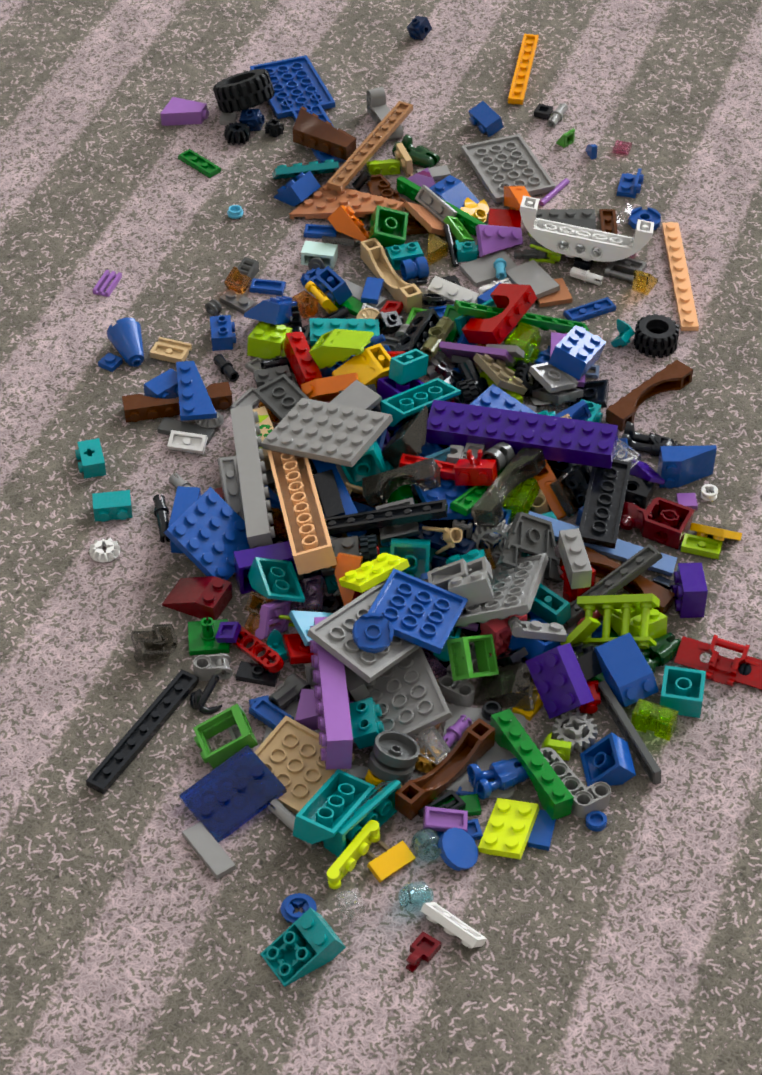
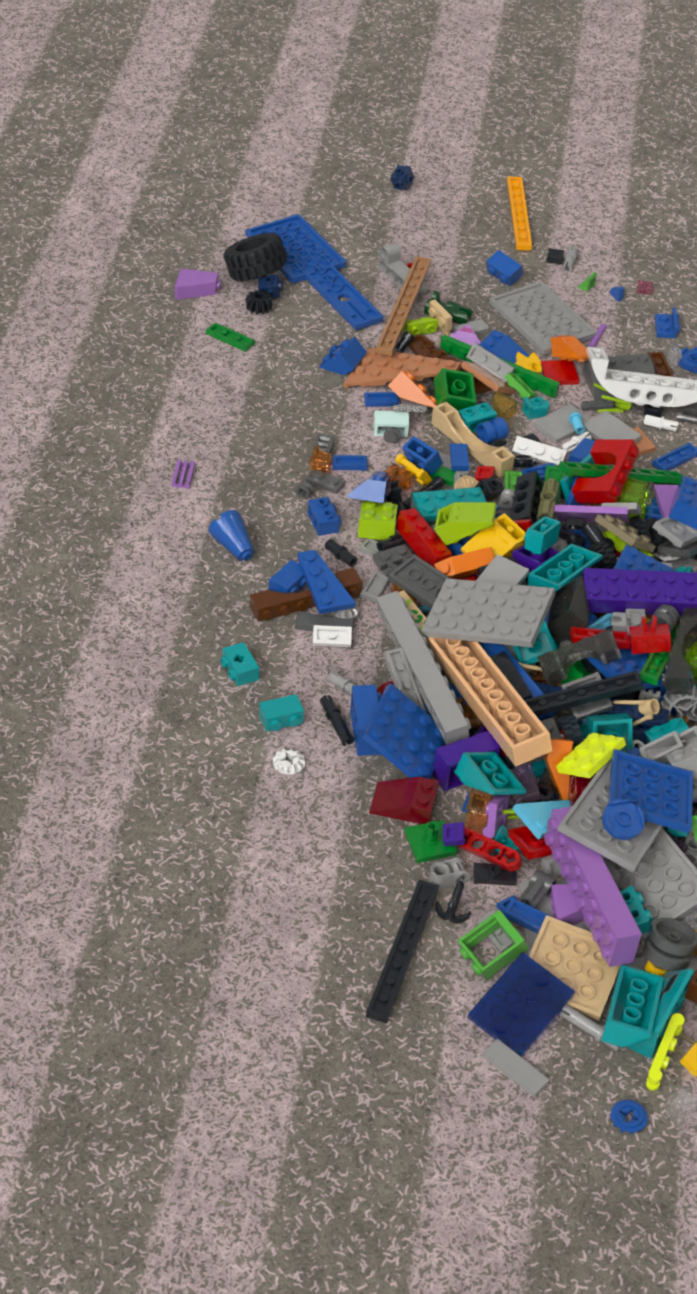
camera: 15 degrees left, 0 degrees up
(110, 362) = (218, 558): blue plate -> none
(154, 644) = (382, 856): clear smoke brick -> none
(170, 350) = (277, 540): tan plate -> none
(226, 118) = (241, 287): light grey tile -> none
(235, 212) = (287, 386): medium azure plate -> none
(274, 128) = (295, 293): black gear -> none
(283, 171) = (340, 335): teal plate -> none
(302, 948) = (649, 1158): teal slope -> none
(310, 276) = (387, 446): blue gear -> none
(322, 136) = (352, 299): reddish brown wedge -> none
(451, 247) = (520, 406): black bar -> none
(497, 238) = (562, 392): medium lavender wing -> none

